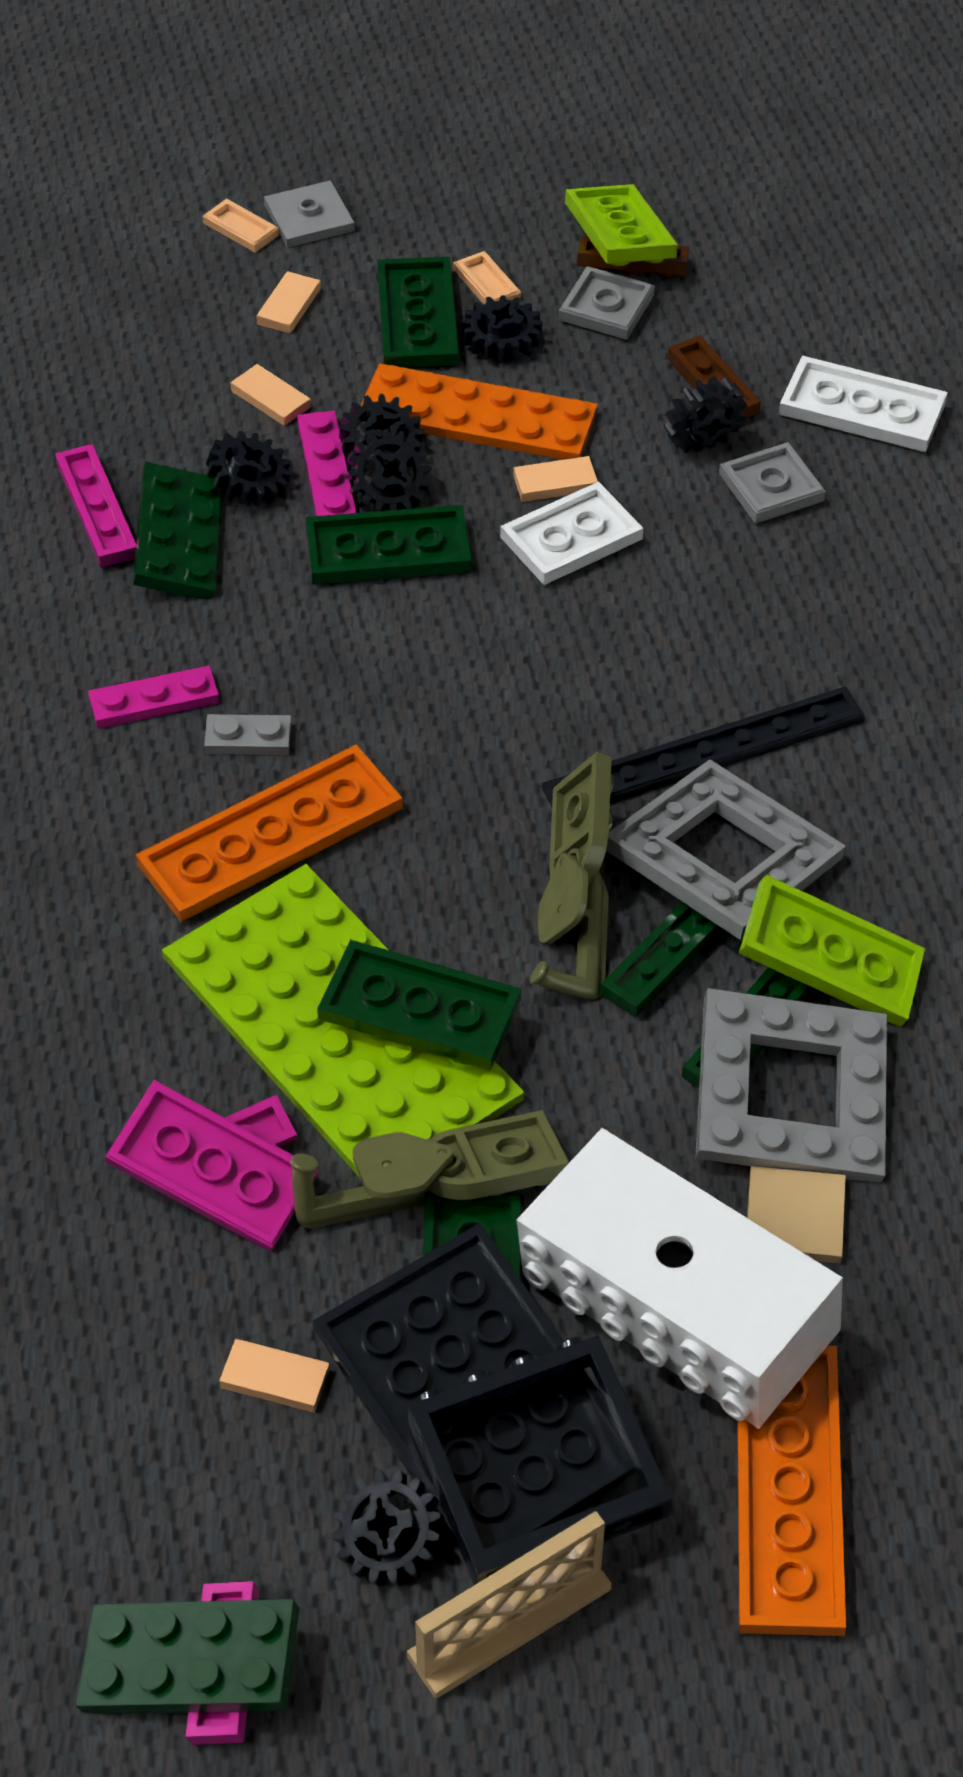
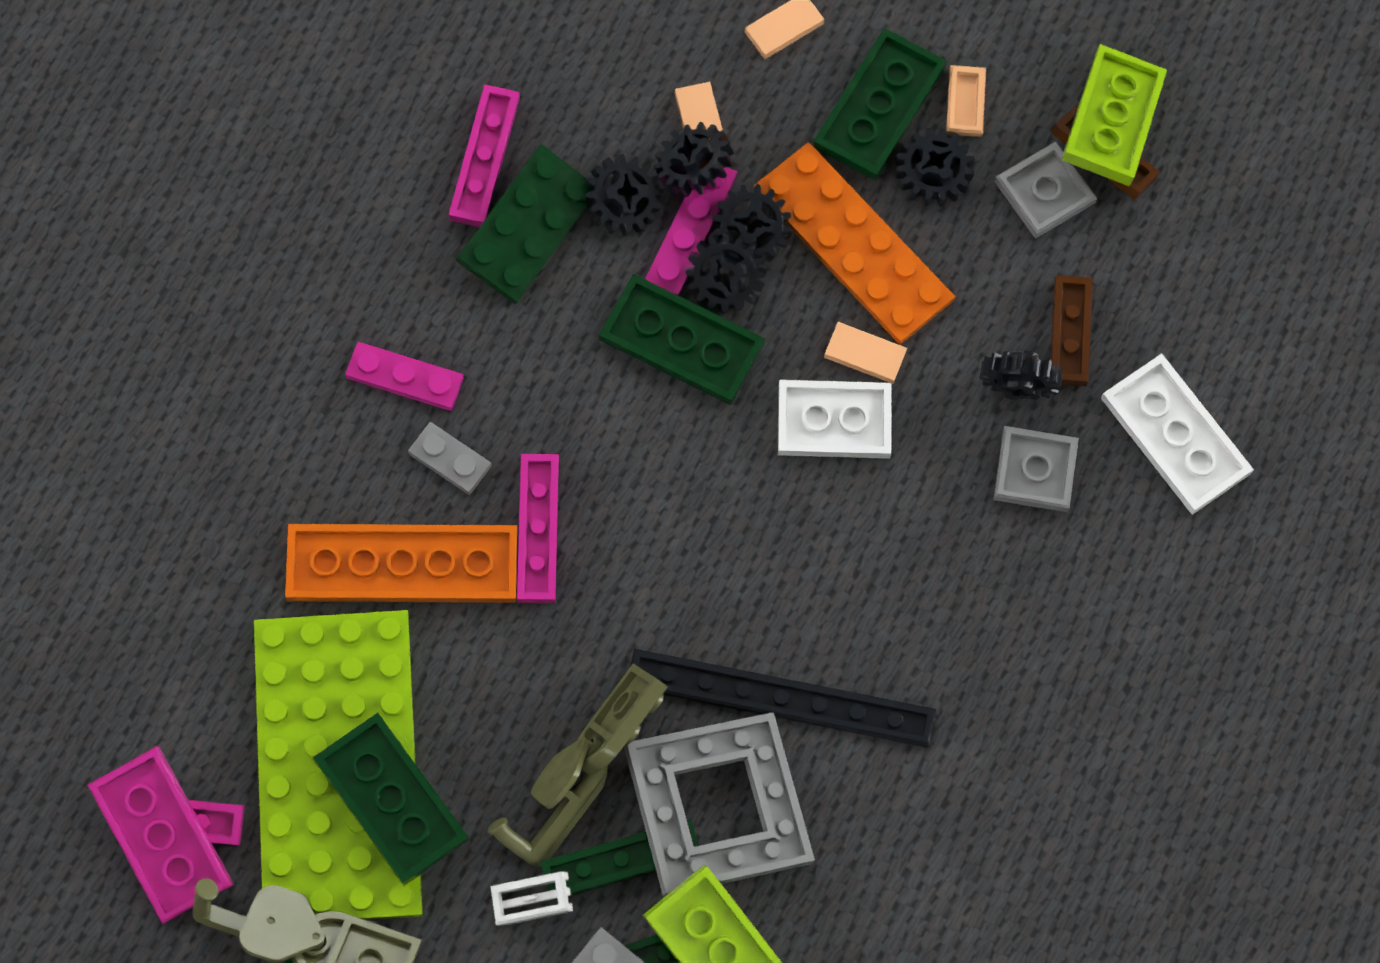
camera: 30 degrees right, 20 degrees up
(293, 409) = (694, 159): none -> black gear
(380, 741) = (538, 529): none -> dark pink plate
(630, 1028) = (561, 893): none -> white tile

